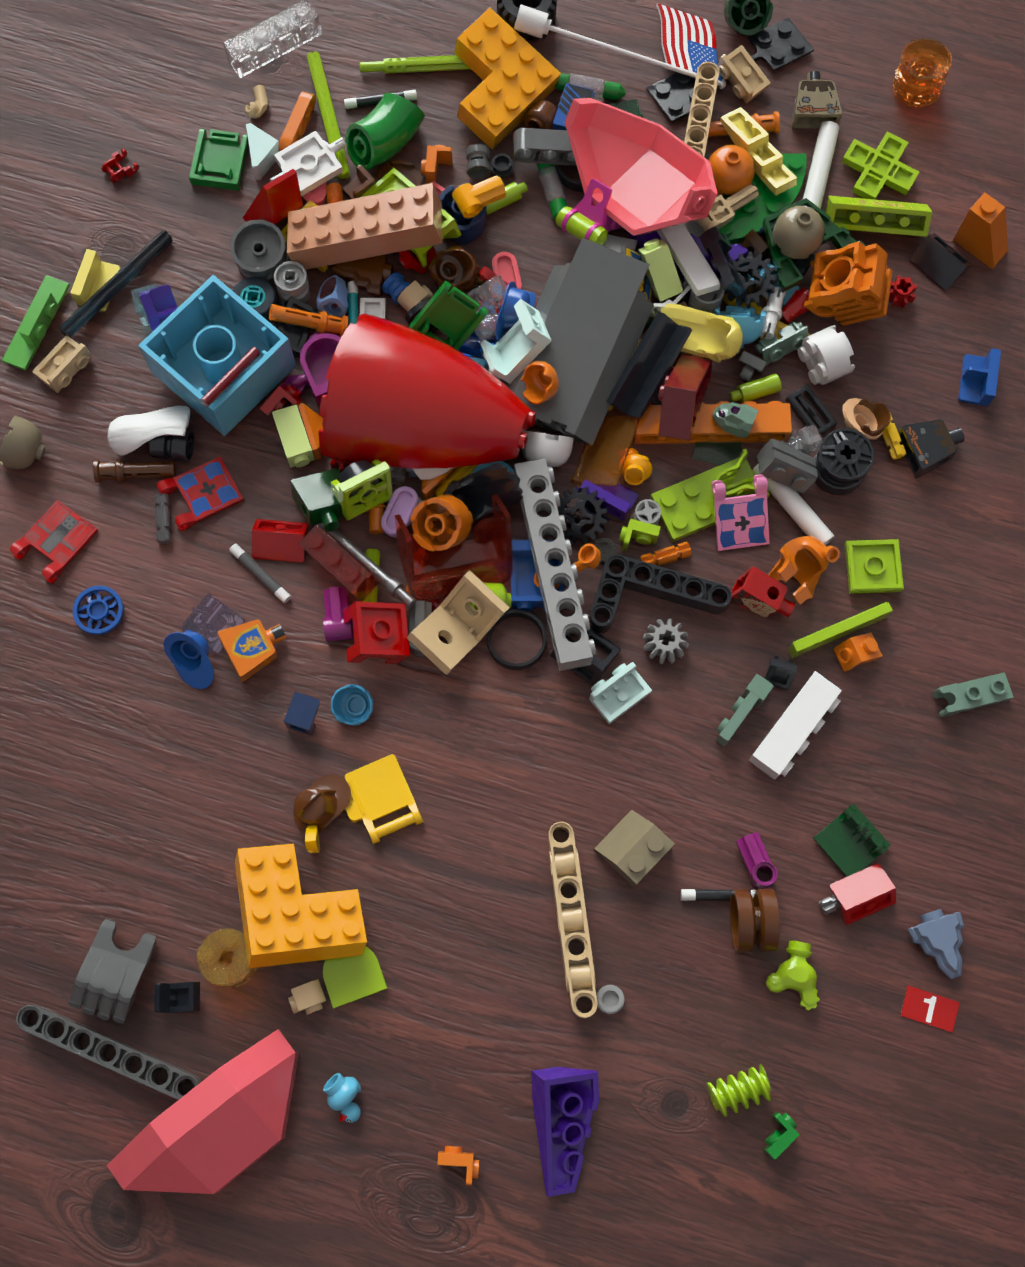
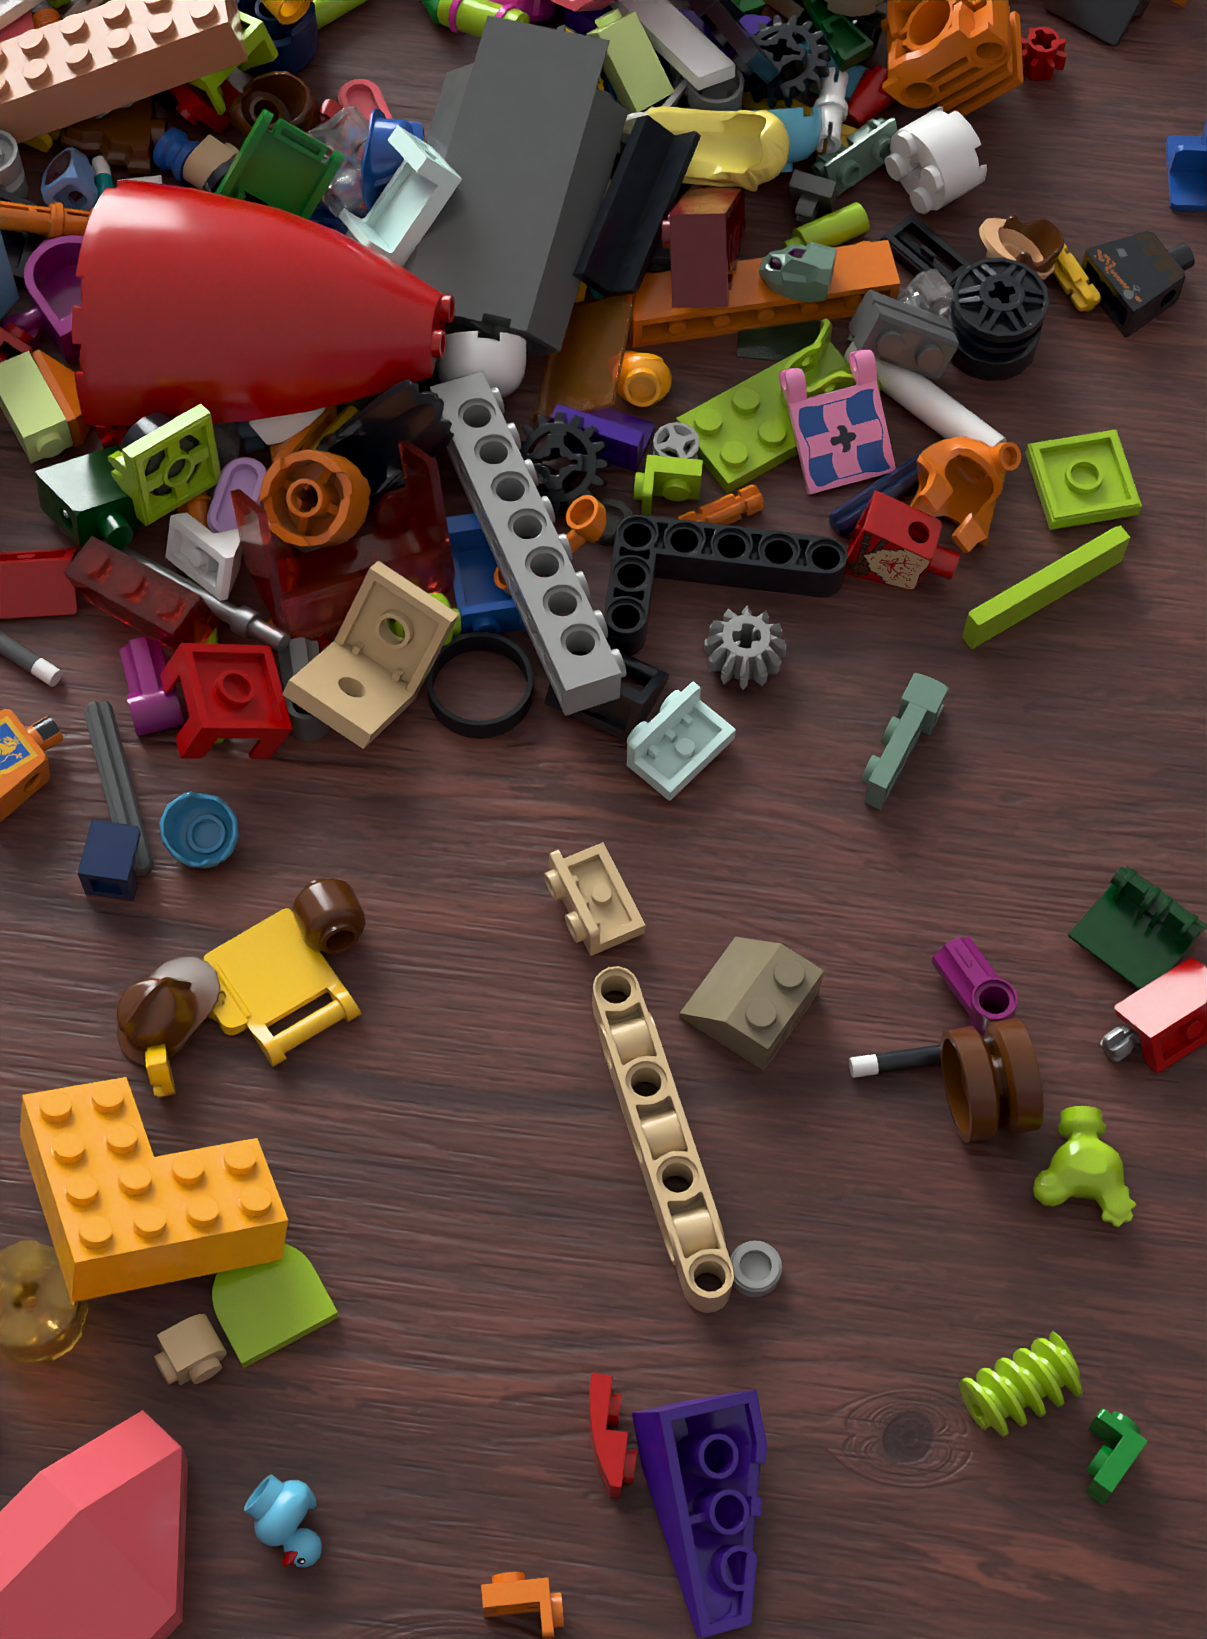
camera: 10 degrees left, 10 degrees down
(312, 665) = (116, 777): none -> dark grey axle
(376, 544) = (204, 556): none -> white slope
(414, 765) = (329, 915): none -> reddish brown head
(518, 1094) = (612, 1458): none -> red slope
(540, 382) = (453, 248): orange hair -> none
(559, 776) = (595, 897): none -> tan bracket
(758, 557) = (895, 484): none -> dark blue axle
(780, 673) = (958, 669): black tile -> none
(795, 725) = (999, 752): white brick -> none
(857, 651) = (1081, 616): orange bracket -> none

